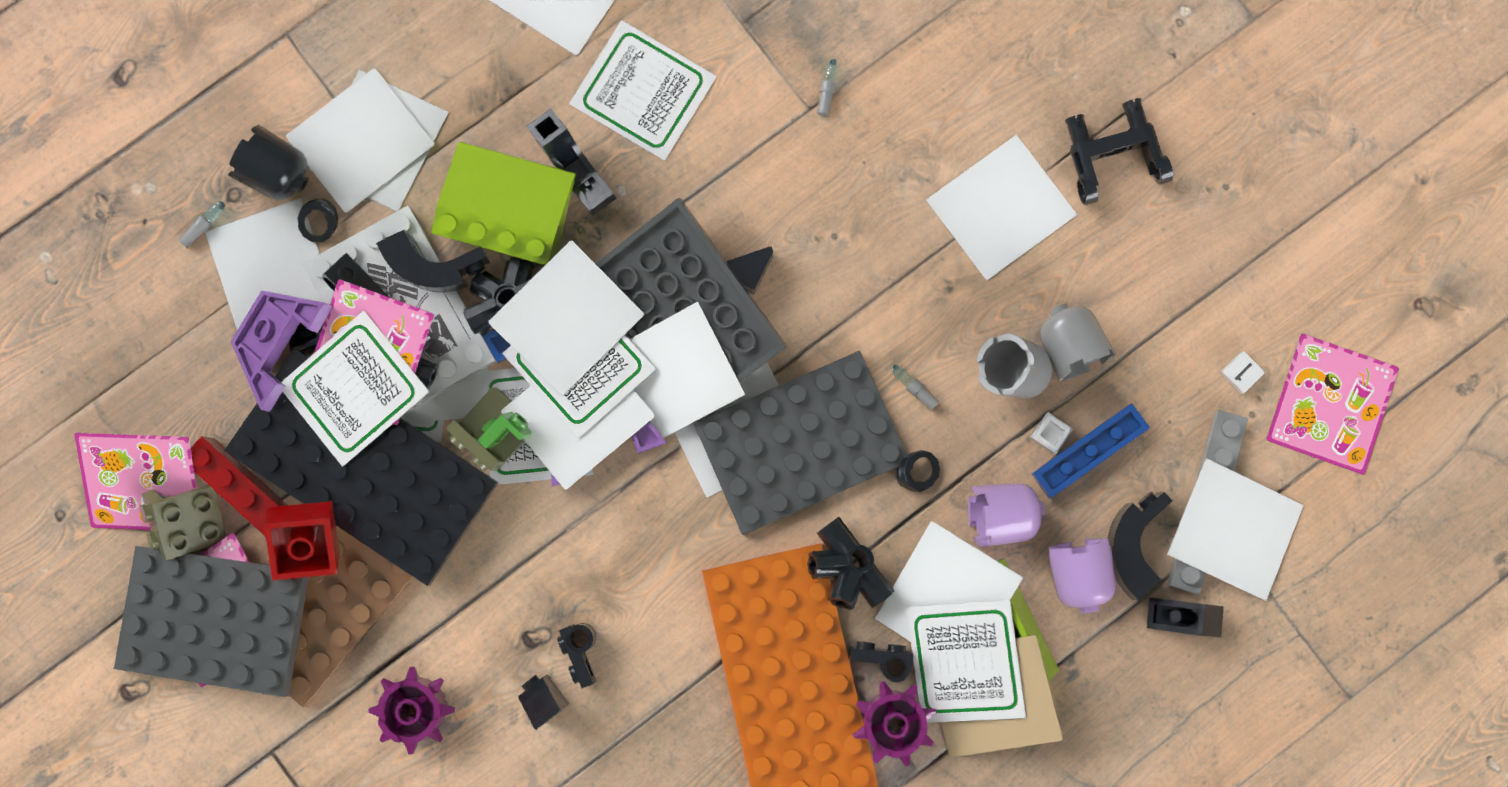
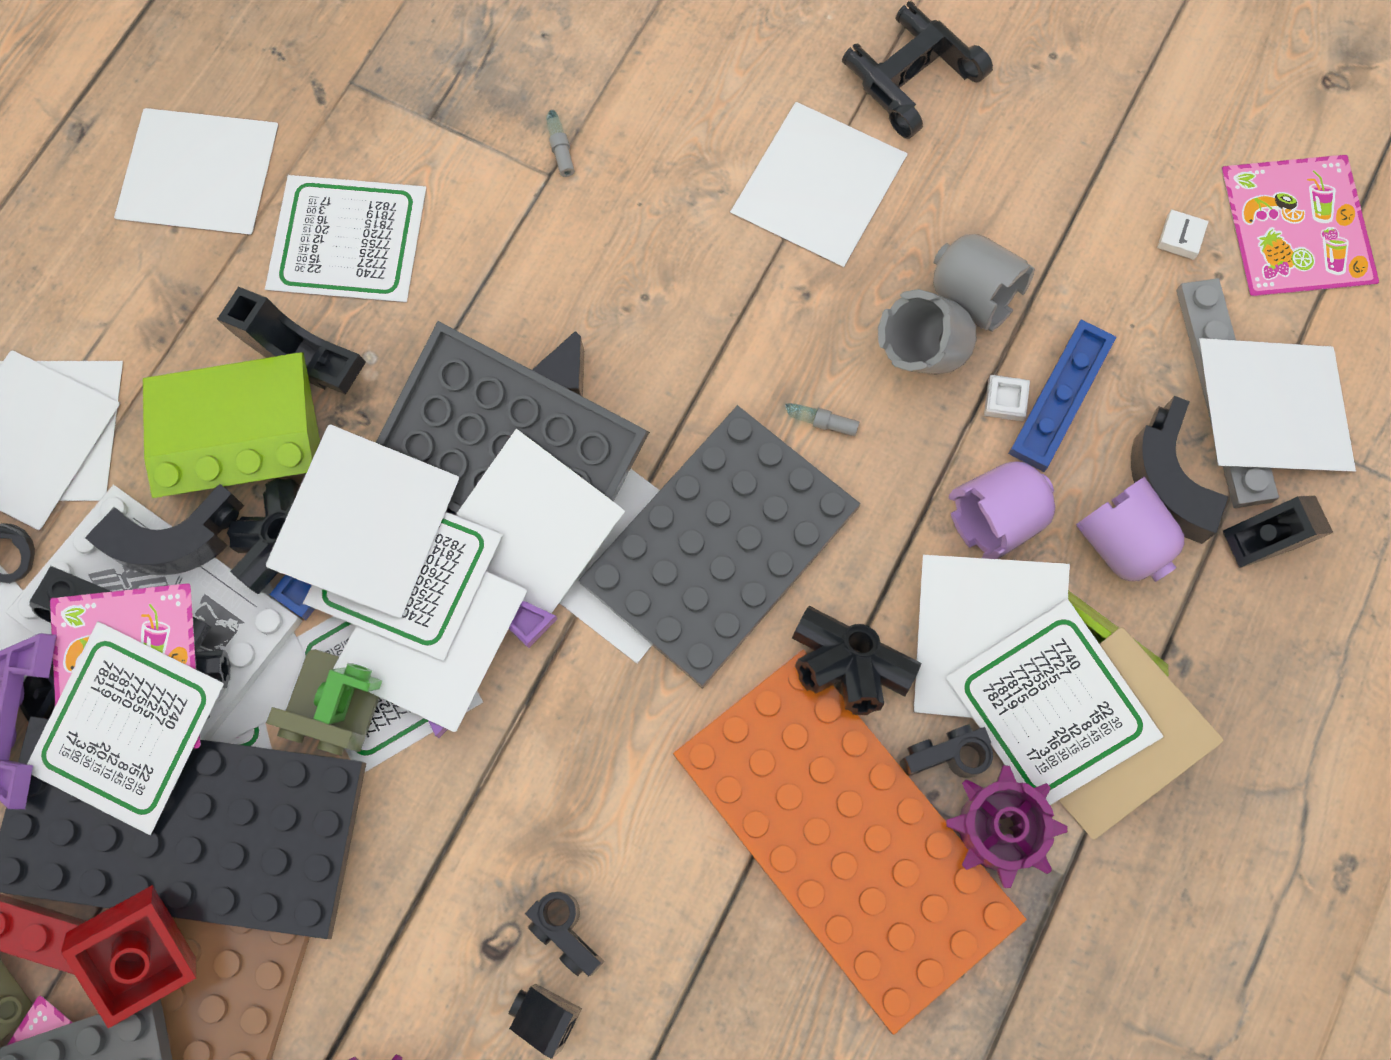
camera: 25 degrees left, 10 degrees down
(904, 476) = (862, 523): black piece -> none

